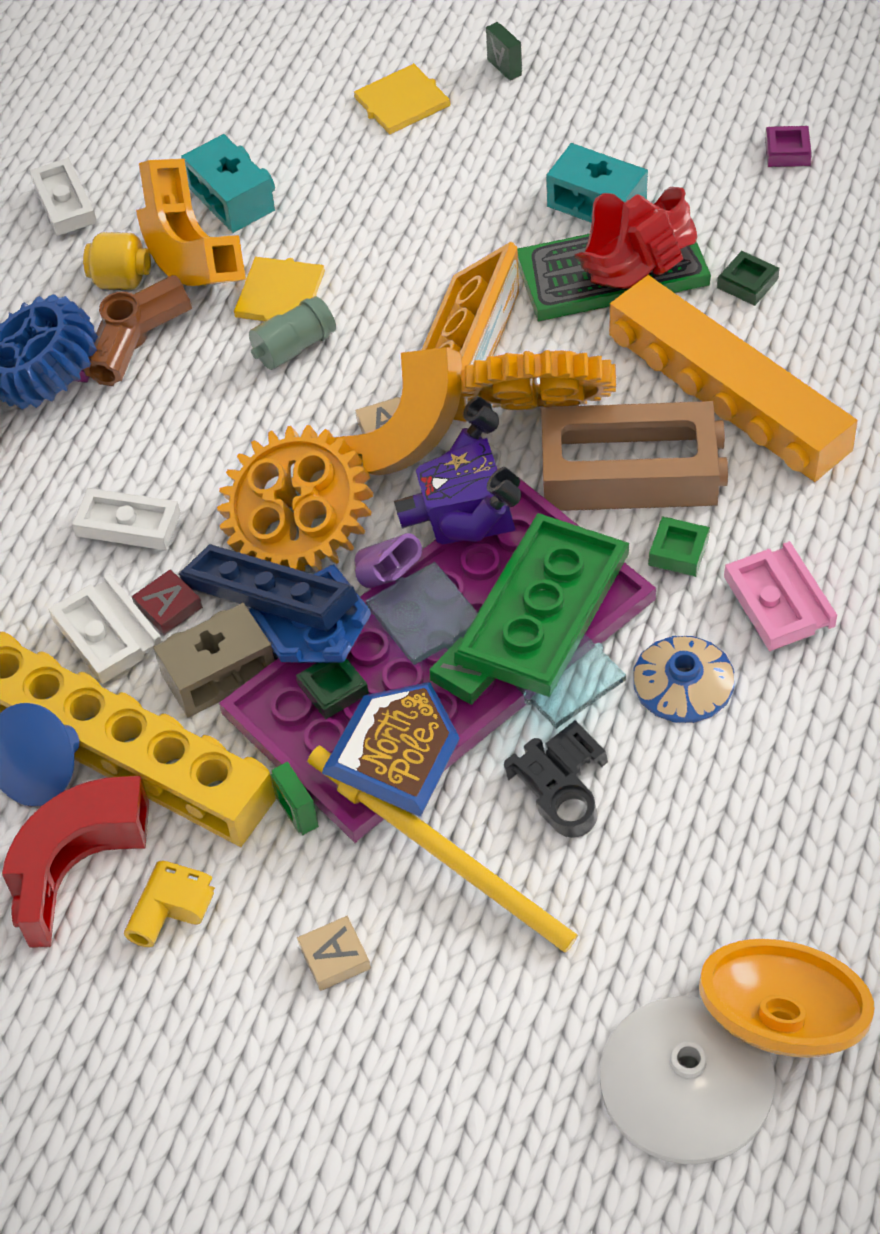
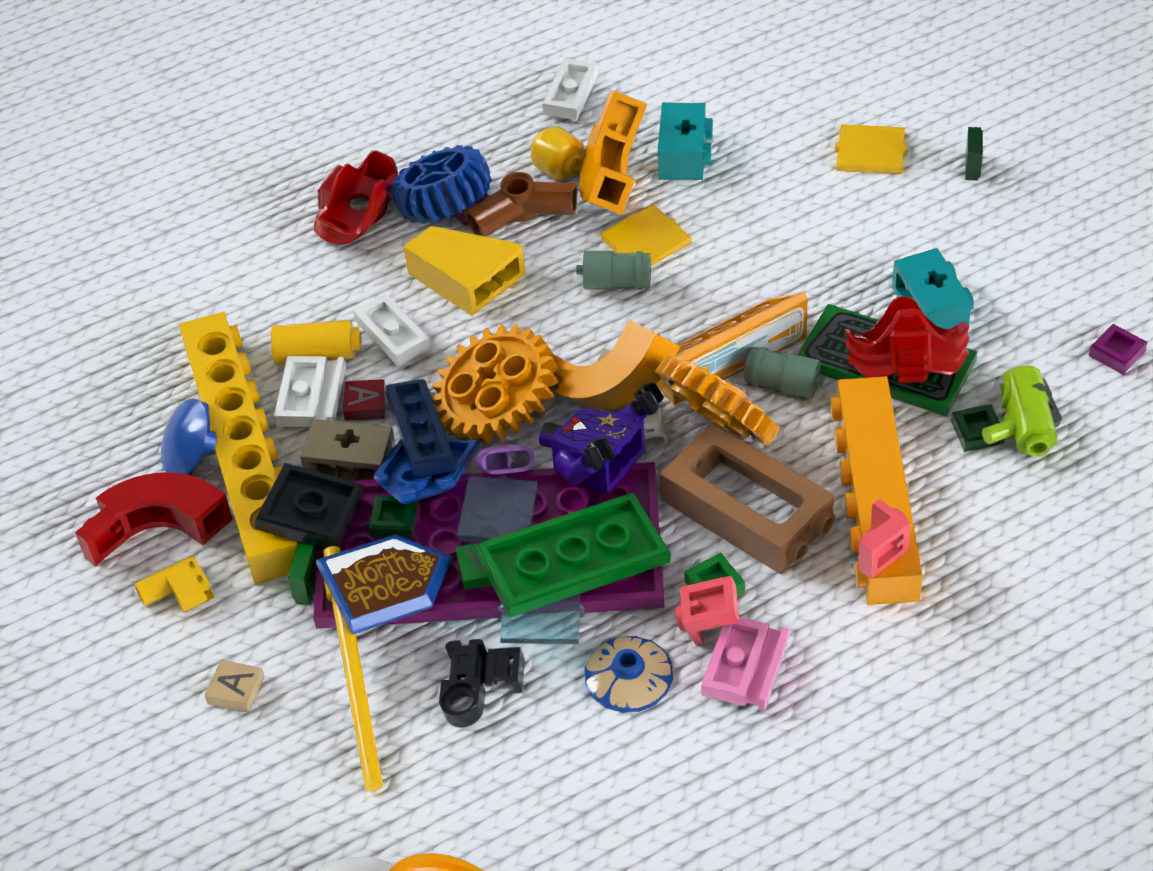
camera: 40 degrees right, 5 degrees down
(59, 576) = (322, 339): none -> yellow brick
(134, 417) = (464, 265): none -> yellow slope
(246, 729) = (309, 507): none -> black tile
(544, 329) = (784, 372): none -> sand green piece
(708, 568) = (707, 607): none -> coral bracket
(781, 238) = (1029, 414): none -> lime piece
(807, 397) = (885, 540): none -> coral bracket

